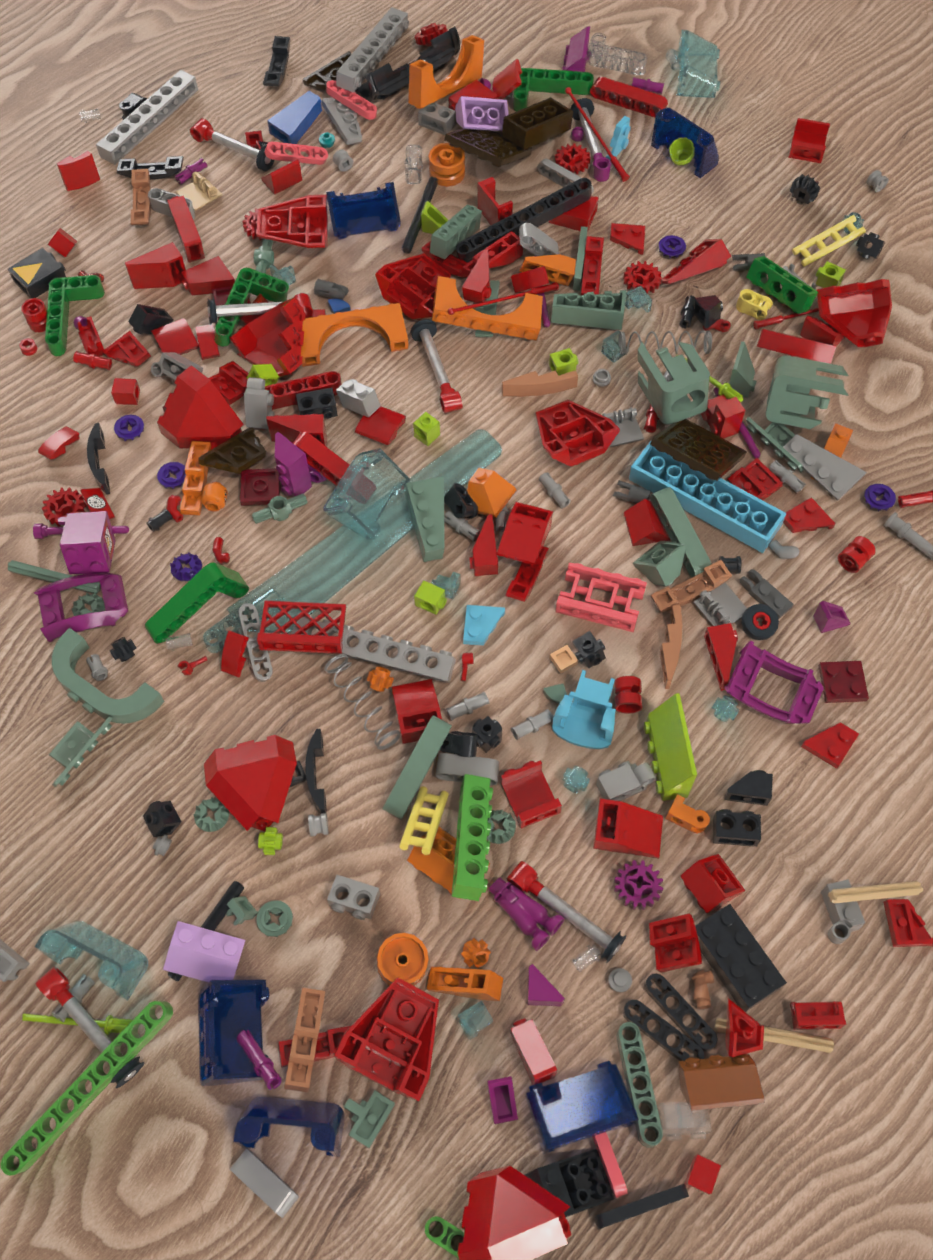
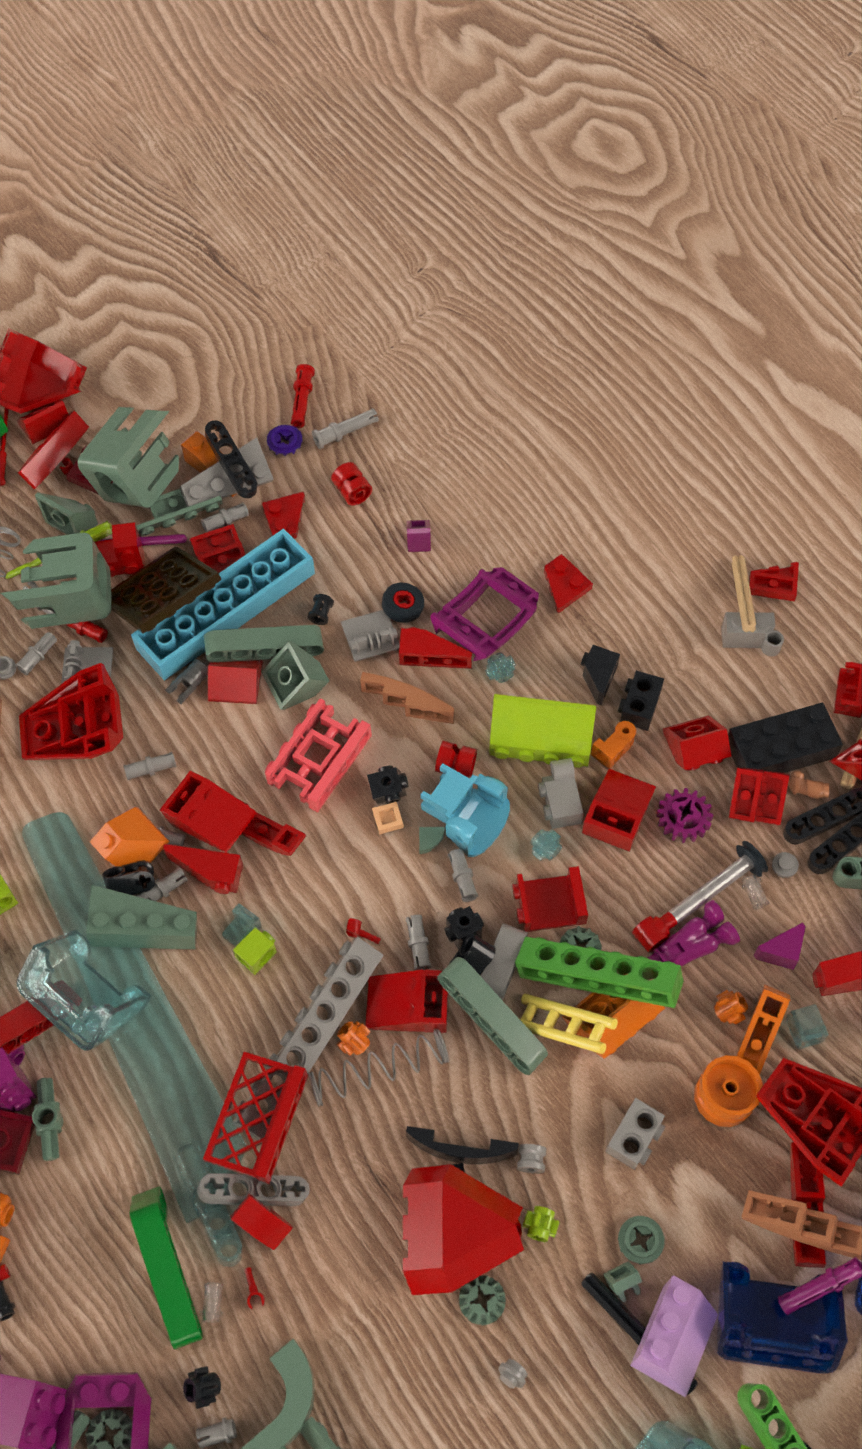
camera: 75 degrees left, 0 degrees up
(161, 818) = (476, 1366): black brick -> none
(185, 573) = (105, 1275): dark purple gear -> none
(217, 550) = (82, 1220): red arm -> none
(480, 622) = (307, 901): medium azure wing -> none
(620, 393) = (36, 653): none -> light grey axle
(690, 590) = (337, 655): nougat slope -> none
(766, 593) = (367, 586): dark grey hinge -> none
(784, 552) = (322, 549): light grey arm -> none
(834, 458) = (230, 459): none -> black beam
(843, 681) = (496, 548): dark red plate -> none

